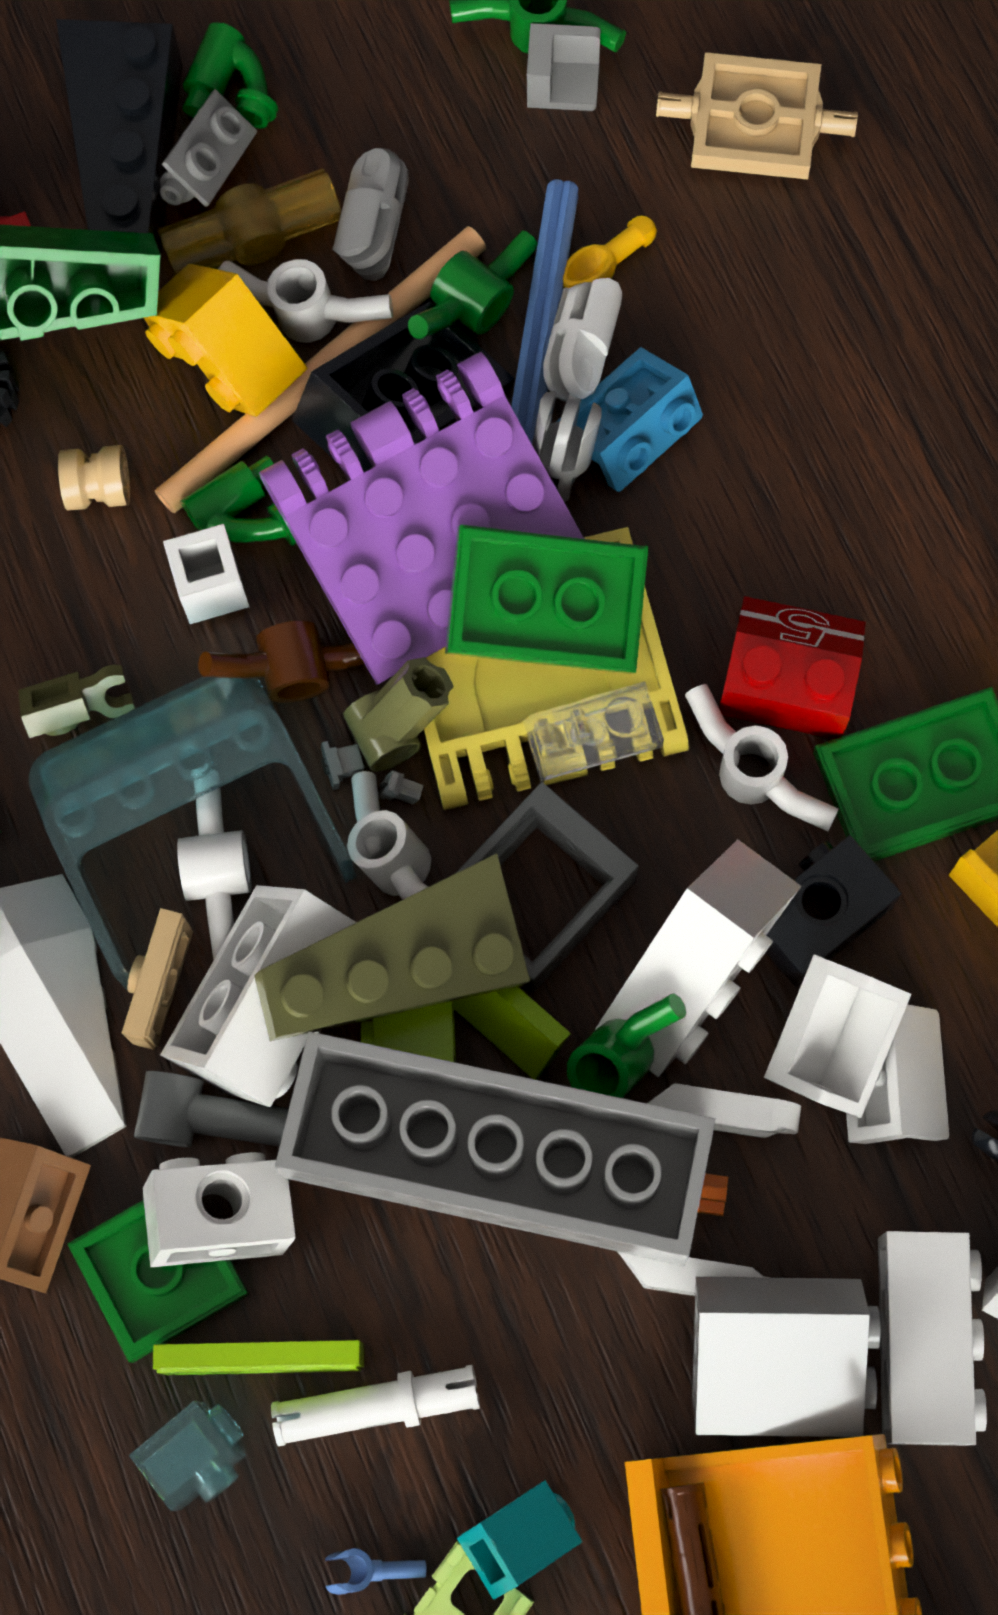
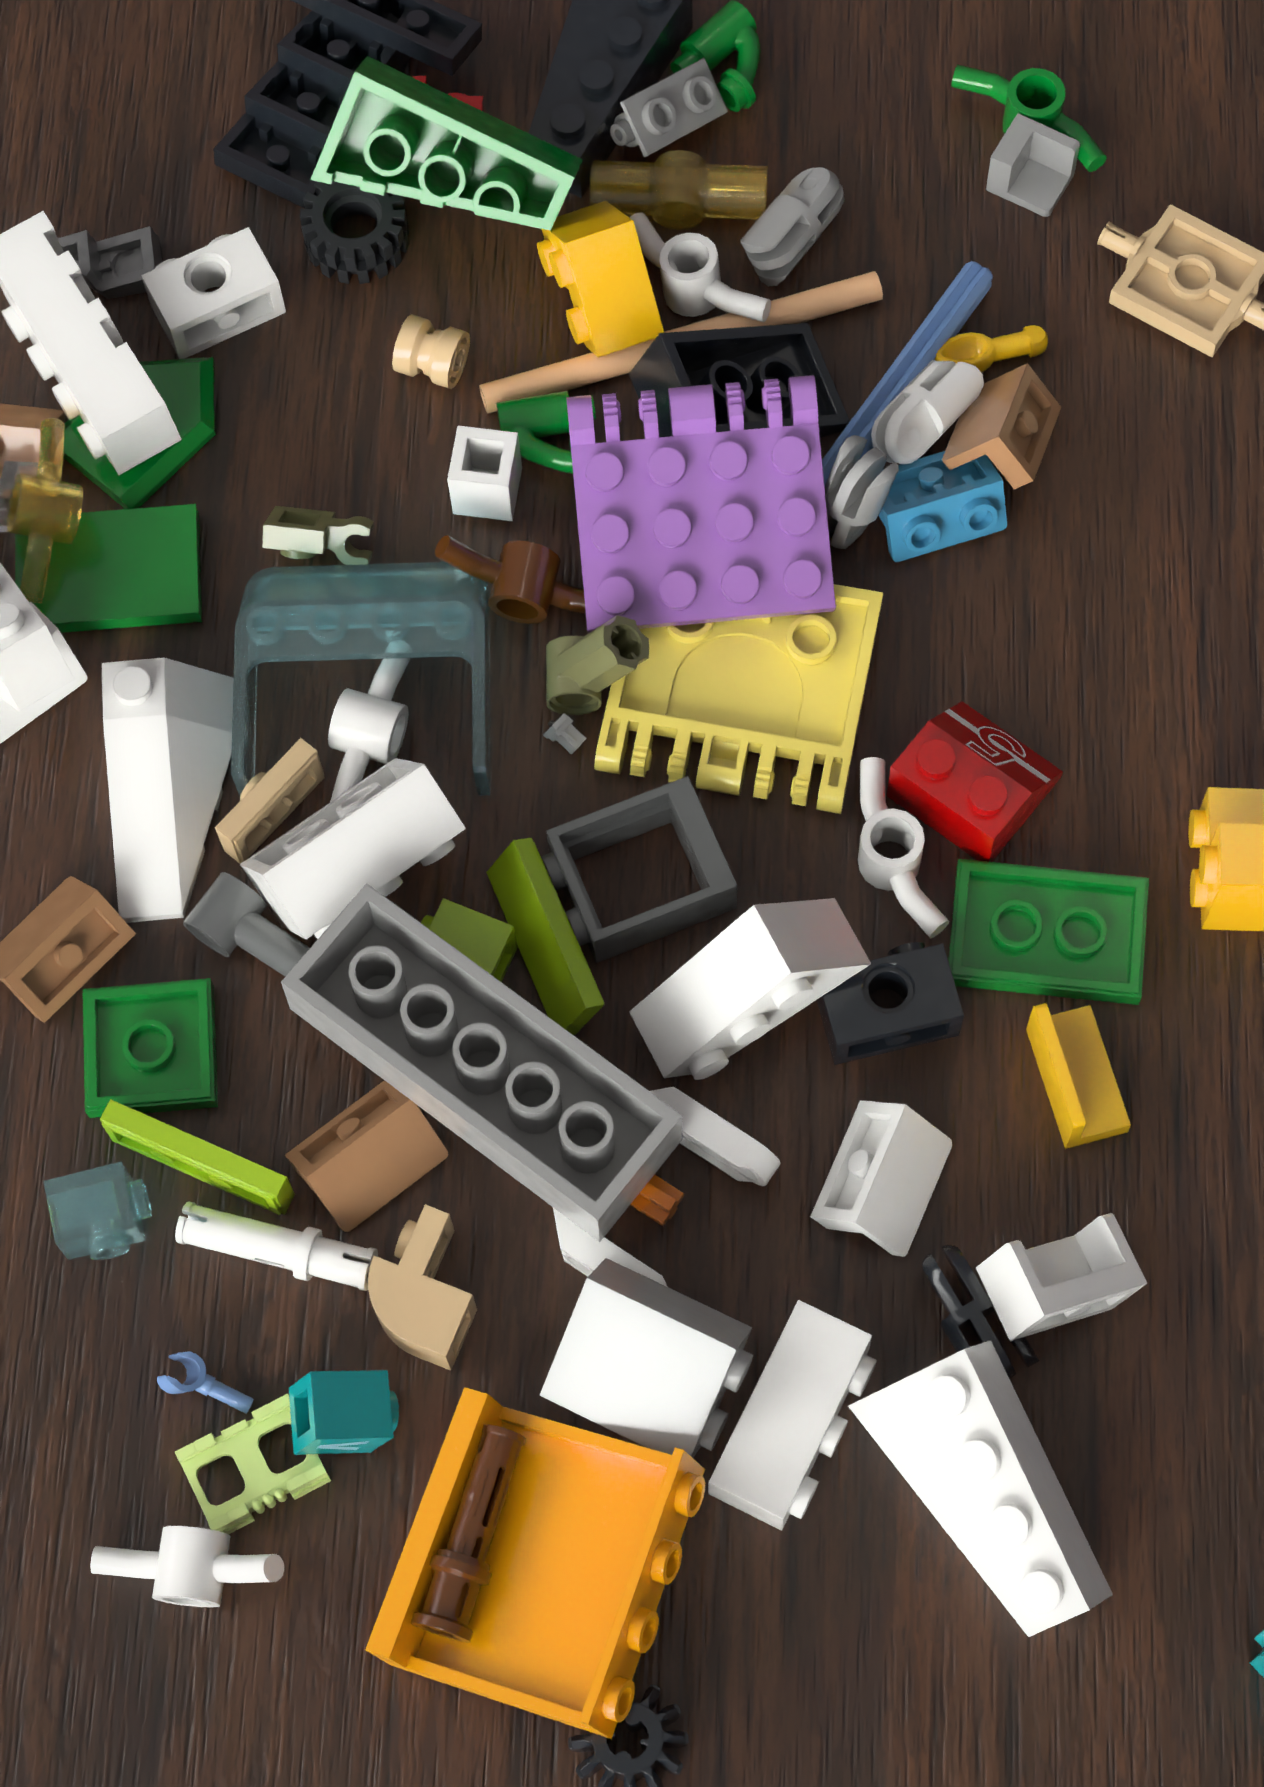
camera: 25 degrees right, 5 degrees down
(186, 1234) = (187, 1024): white brick -> none
(341, 762) = (525, 690): light grey piece -> none
(385, 844) = (527, 781): white piece -> none
(410, 956) = (495, 866): olive wing -> none
(415, 1277) = (368, 1155): none -> medium nougat panel
(473, 291) = (848, 328): green piece -> none
(532, 1405) = (412, 1306): none -> tan brick
(546, 599) = (770, 619): green tile -> none
(593, 731) = (758, 755): clear plate -> none
(626, 1045) = (640, 1036): green piece -> none
(659, 320) = (1008, 424): none -> medium nougat panel
(837, 1036) = (841, 1112): white panel -> none

